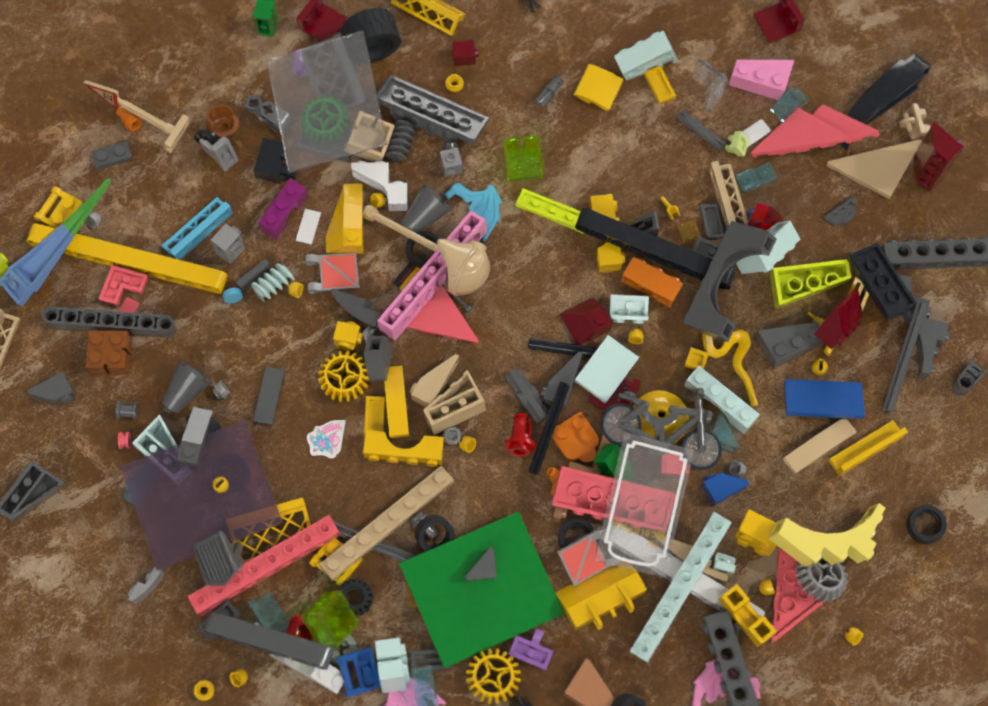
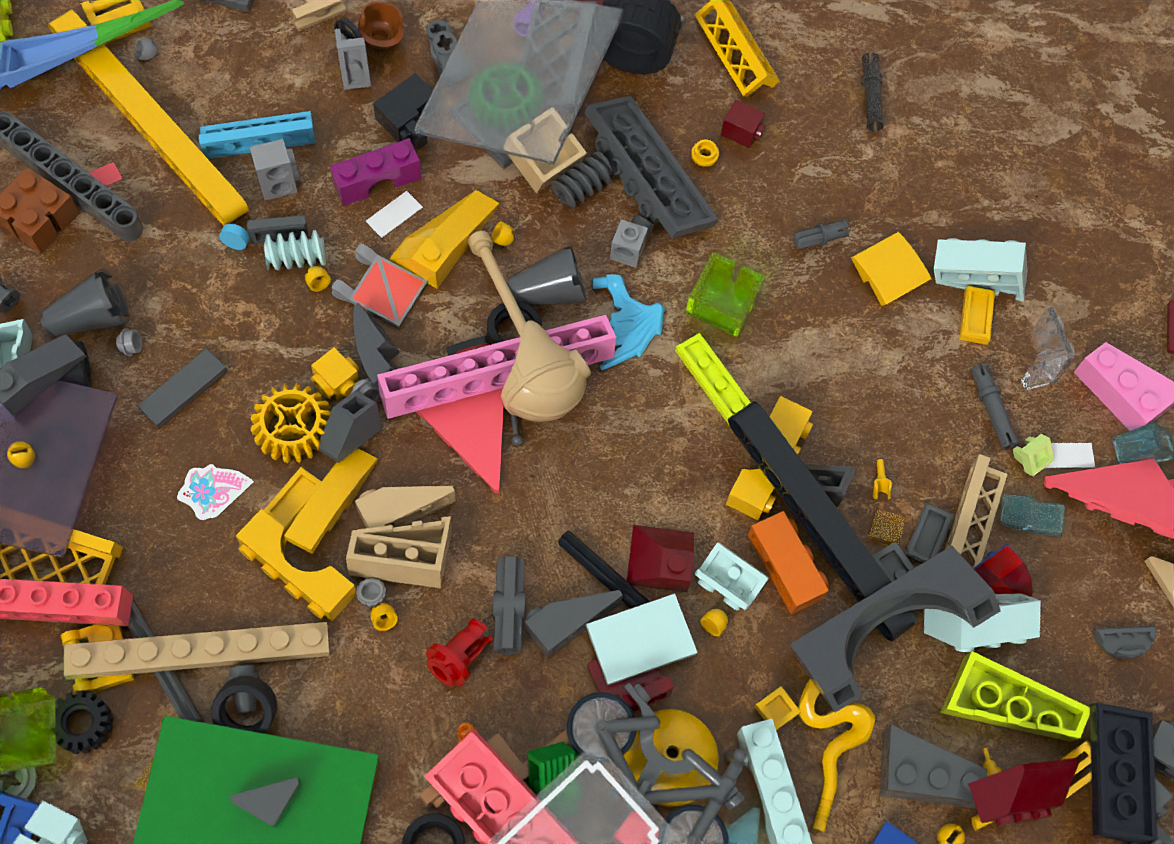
camera: 30 degrees right, 5 degrees down
(120, 280) = (115, 135): coral plate -> none
(377, 176) = (525, 206): white arch -> none
(549, 428) = (503, 667): black axle -> none
(576, 439) = (533, 707): orange plate -> none

